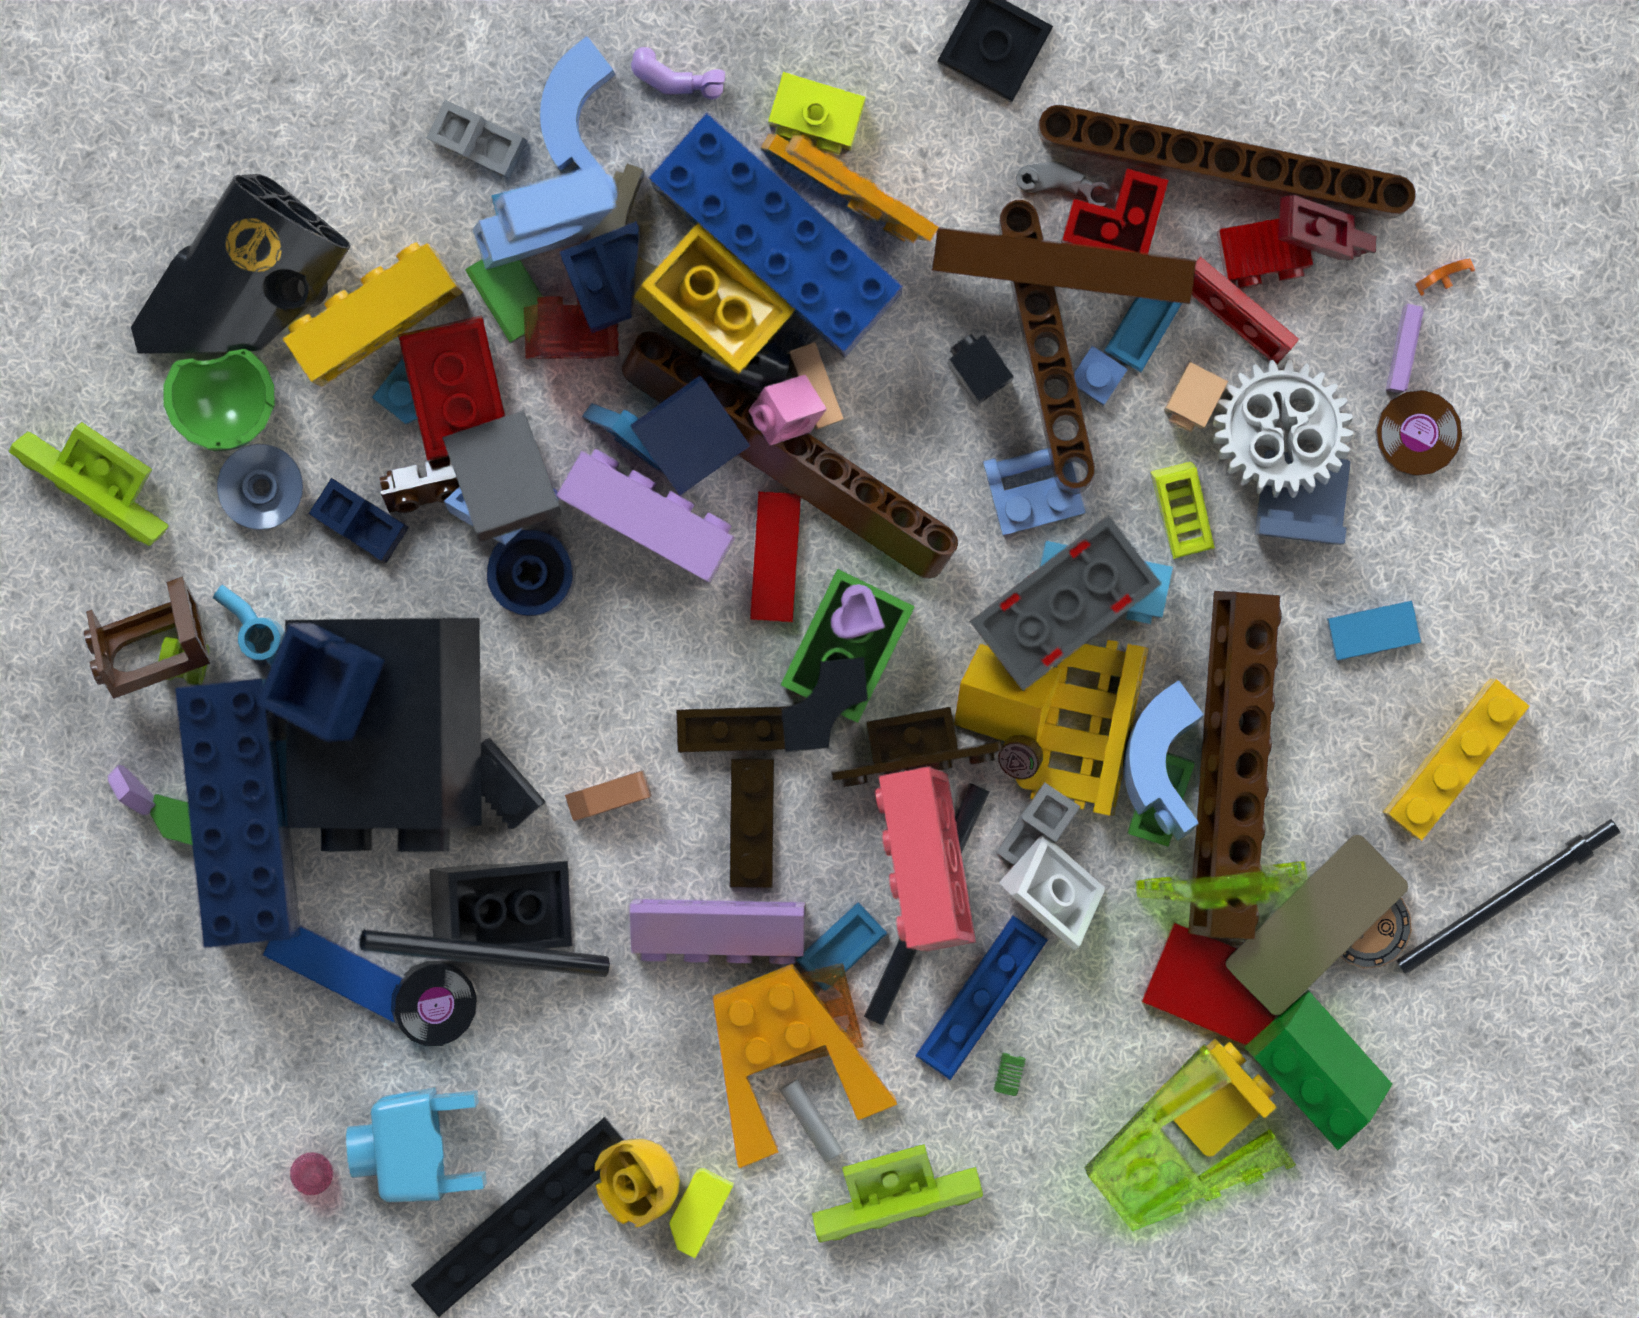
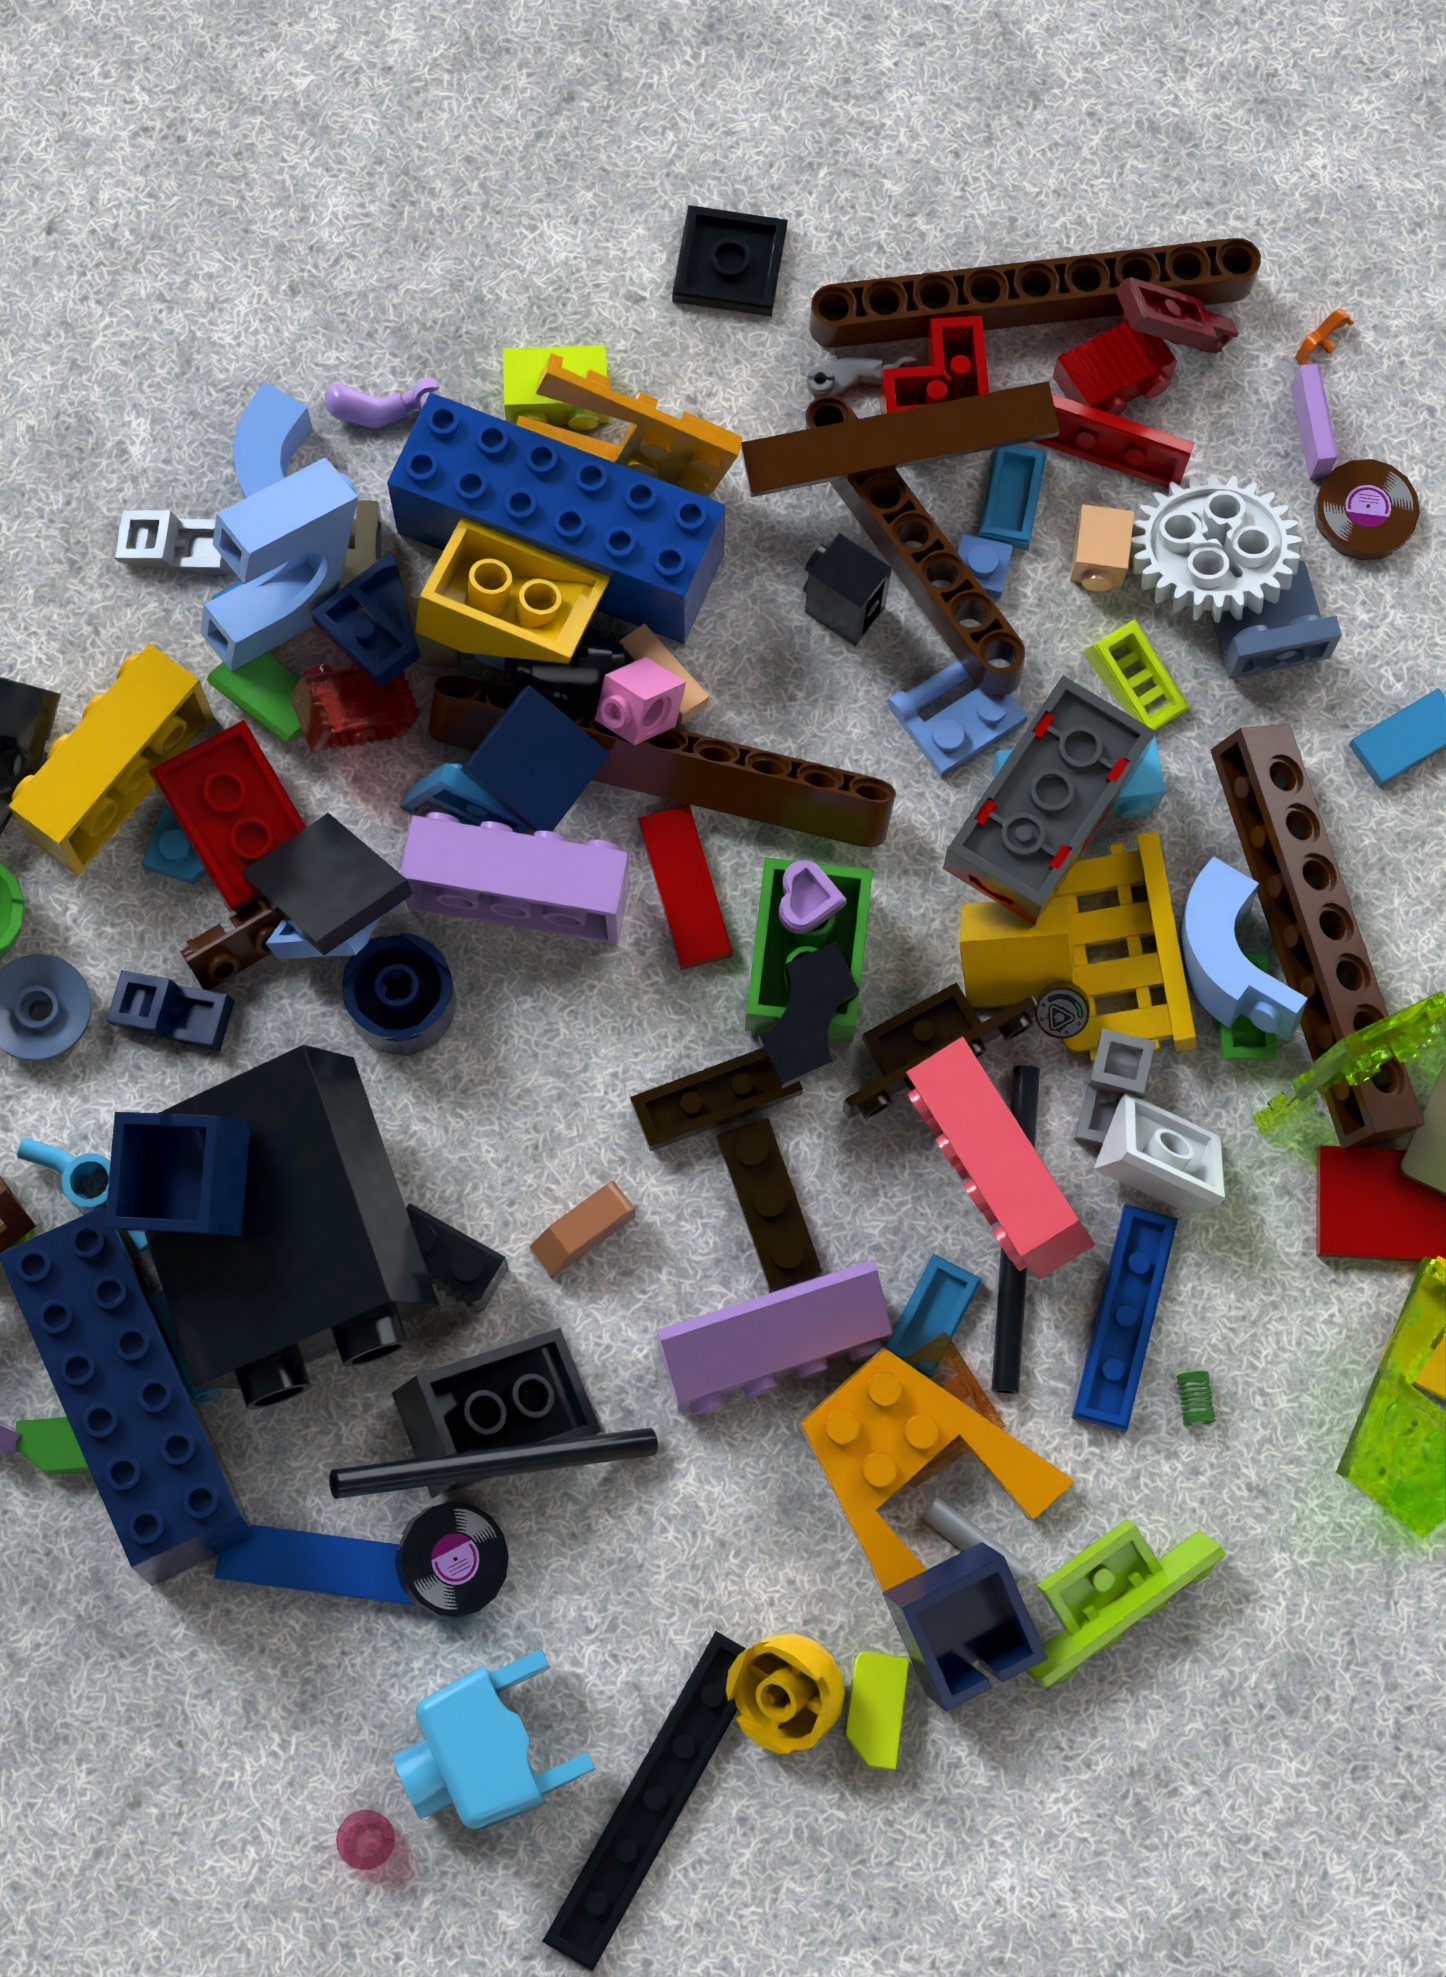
camera: 25 degrees left, 15 degrees down
(773, 1171) = (963, 1615): none -> dark blue piece

